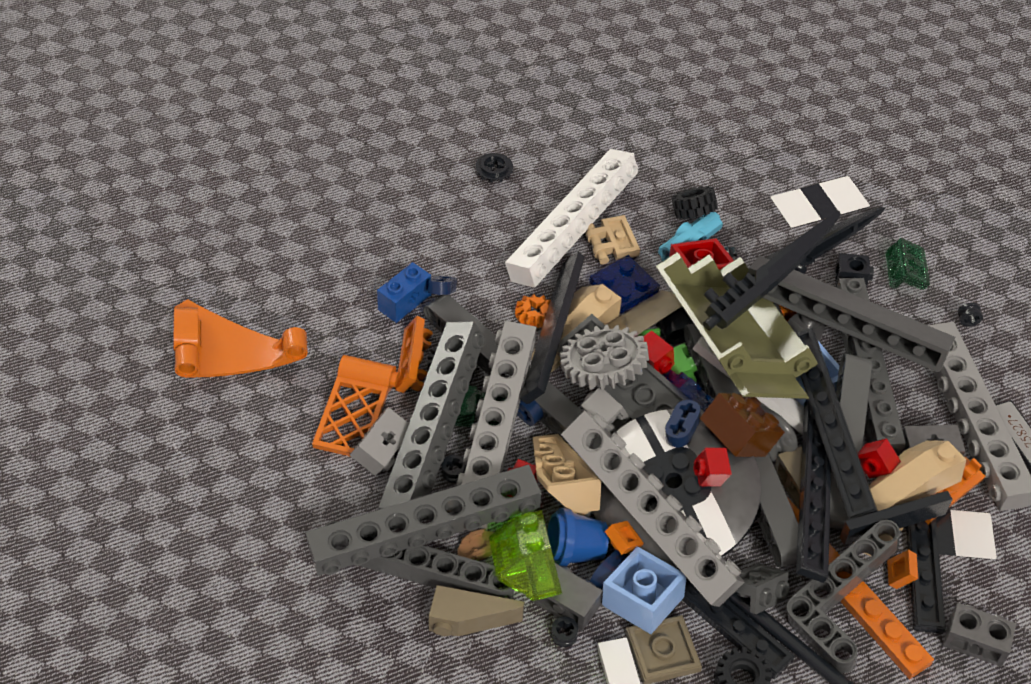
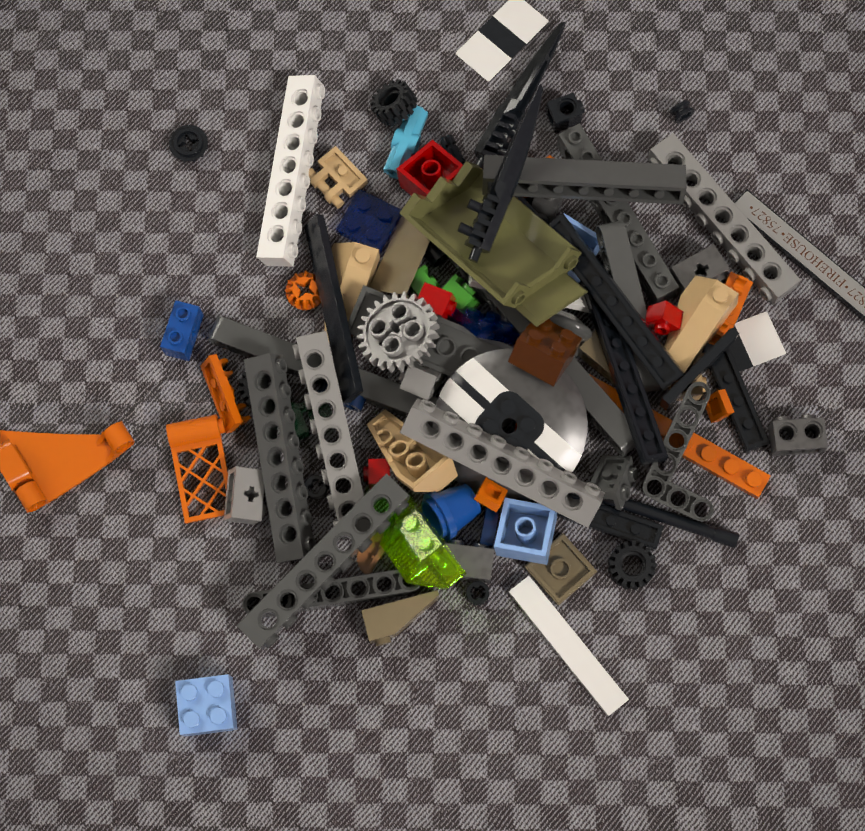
camera: 20 degrees left, 25 degrees up
(232, 604) = (206, 705): none -> light blue brick
(442, 285) = (213, 308): dark blue beam -> none
(687, 424) = (489, 371): dark blue beam -> none
(712, 467) = (538, 406): red plate -> none
(907, 264) = (608, 80): clear green bracket -> none

